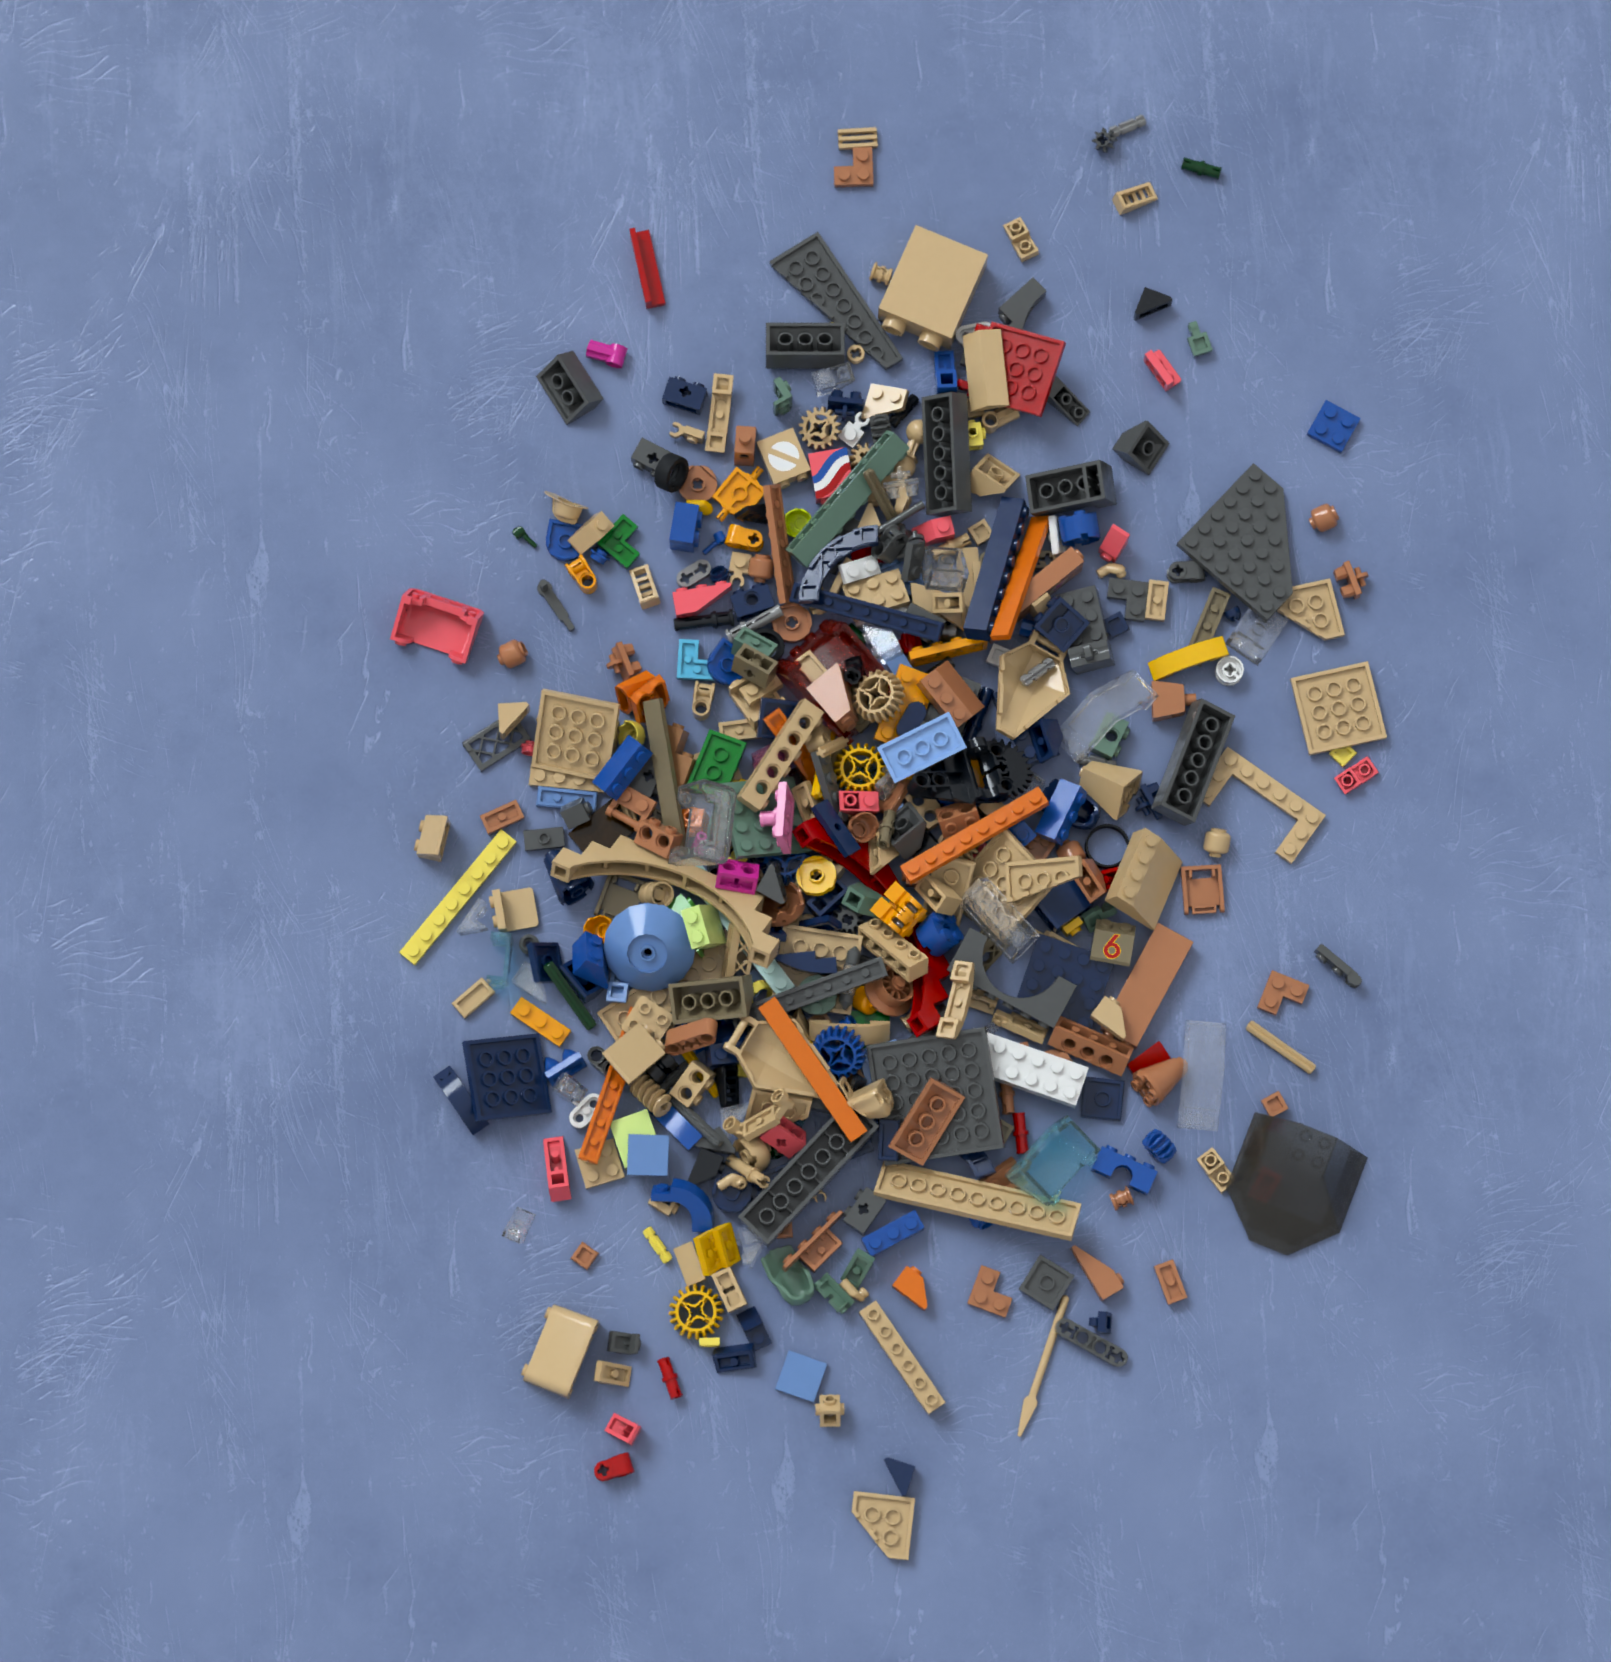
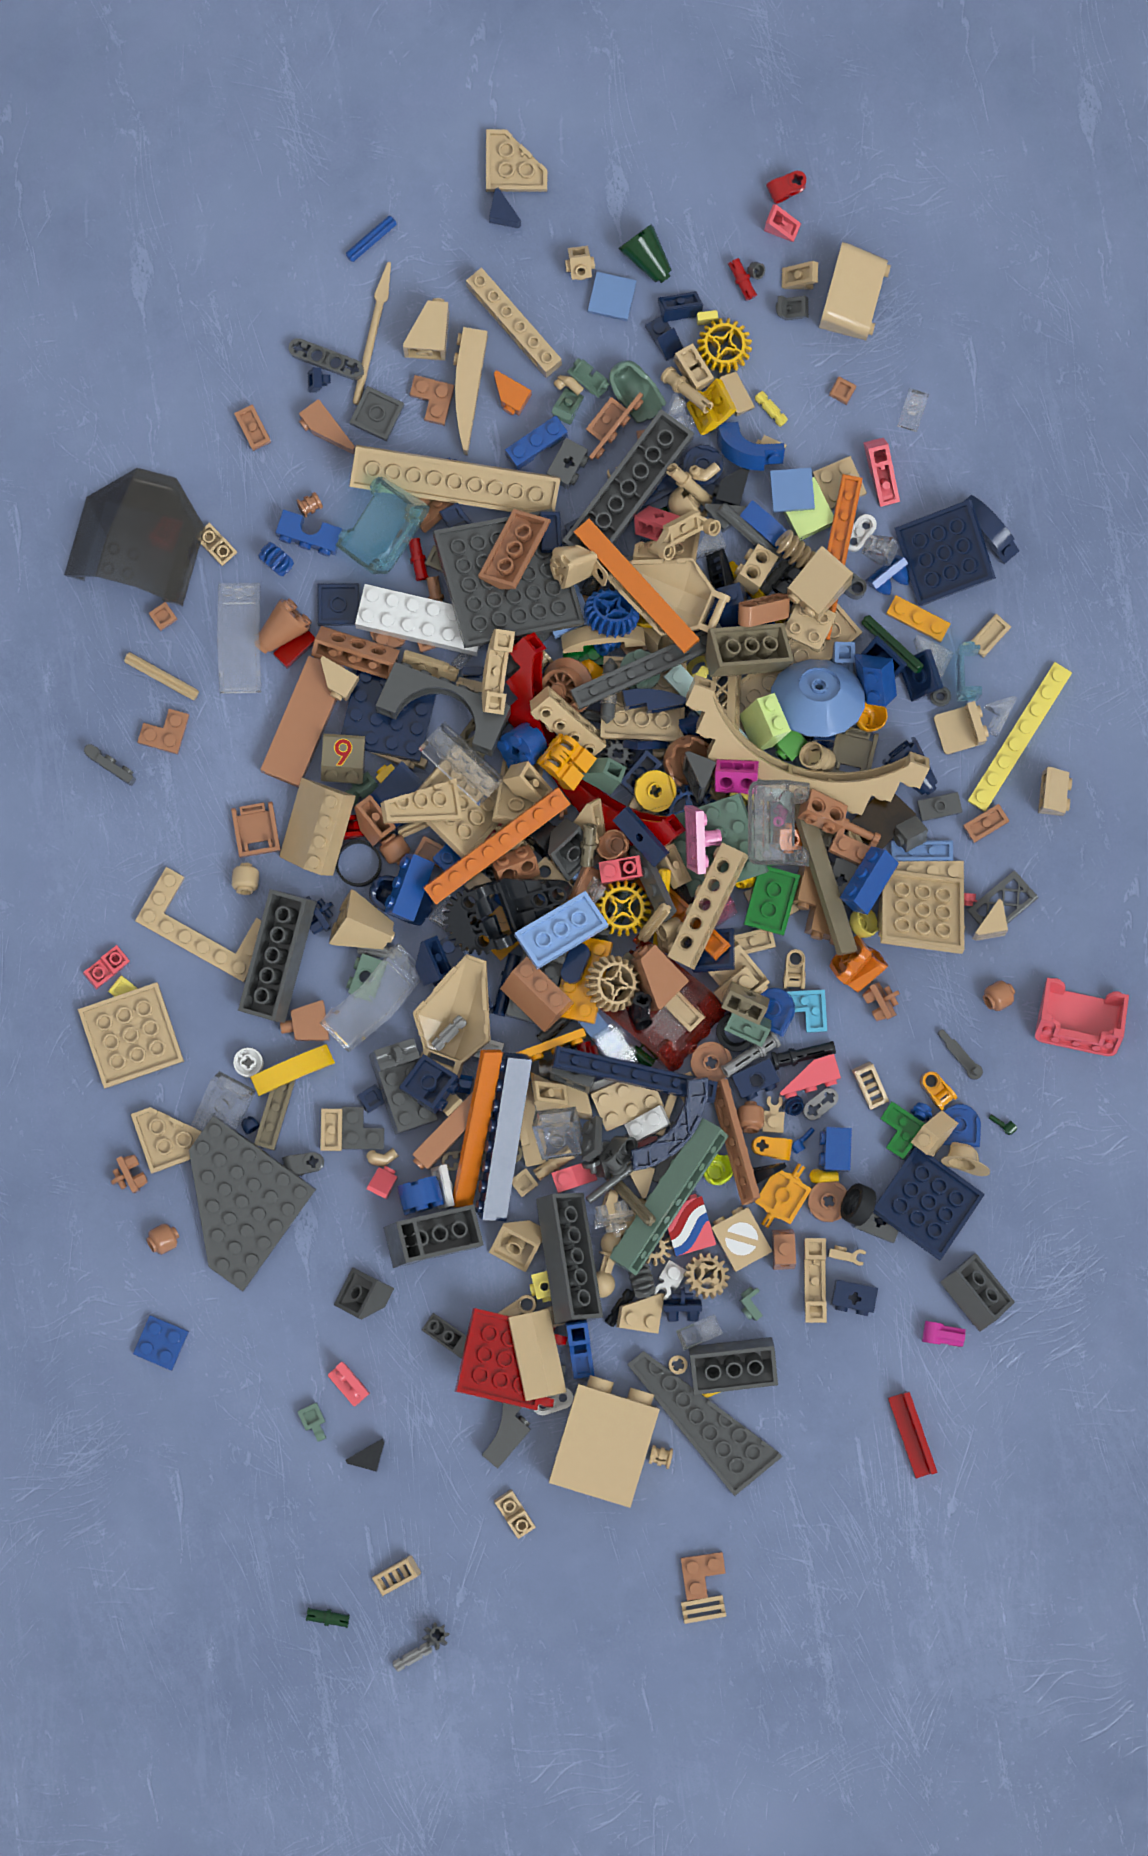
camera: 170 degrees right, 5 degrees up
(605, 469) = (928, 1203): none -> dark blue plate
(652, 1382) = (759, 267): none -> dark grey hinge
(744, 1274) = (680, 385): none -> tan pin
(761, 1412) = (648, 254): none -> dark green cone
(953, 1306) = (468, 377): none -> tan slope
(980, 1016) = (473, 672): none -> dark blue tile
(985, 1354) = (429, 332): none -> tan slope
(1034, 1462) = (371, 238): none -> blue axle

